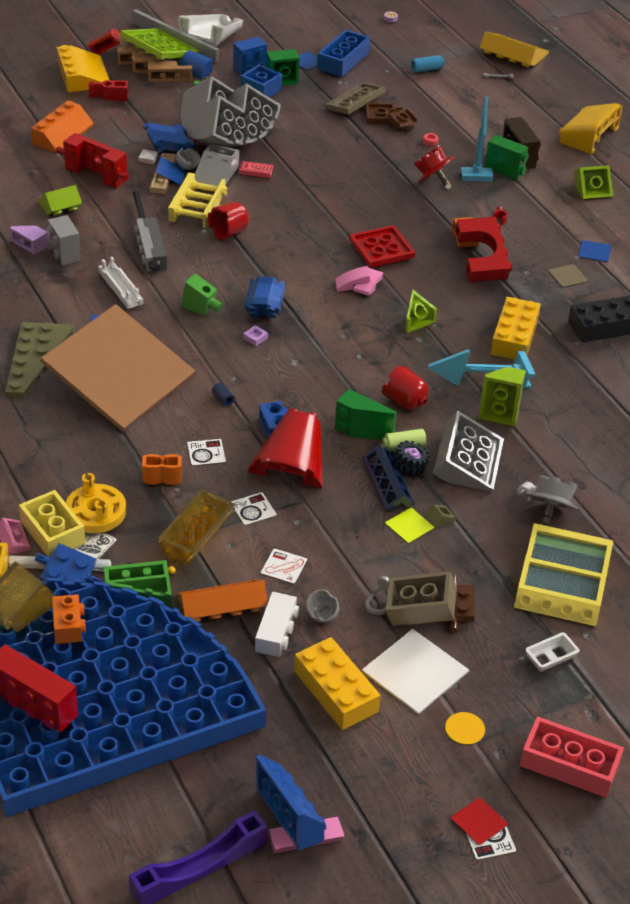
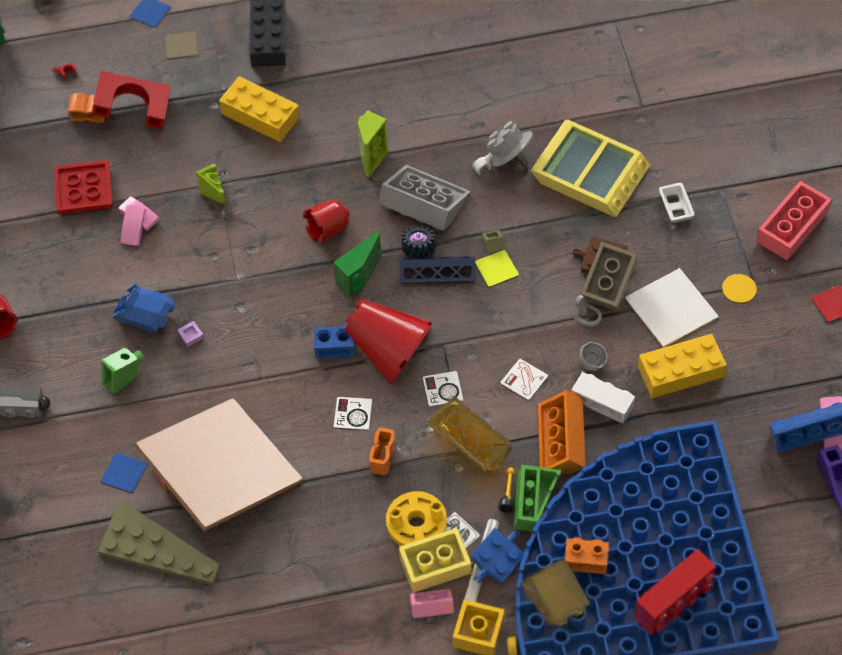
camera: 70 degrees left, 15 degrees up
(120, 284) = (64, 443): white piece -> none
(223, 394) = (277, 380): dark blue piece -> none
(393, 439) = (391, 241): yellowish green brick -> none
(455, 365) = (318, 121): medium azure piece -> none

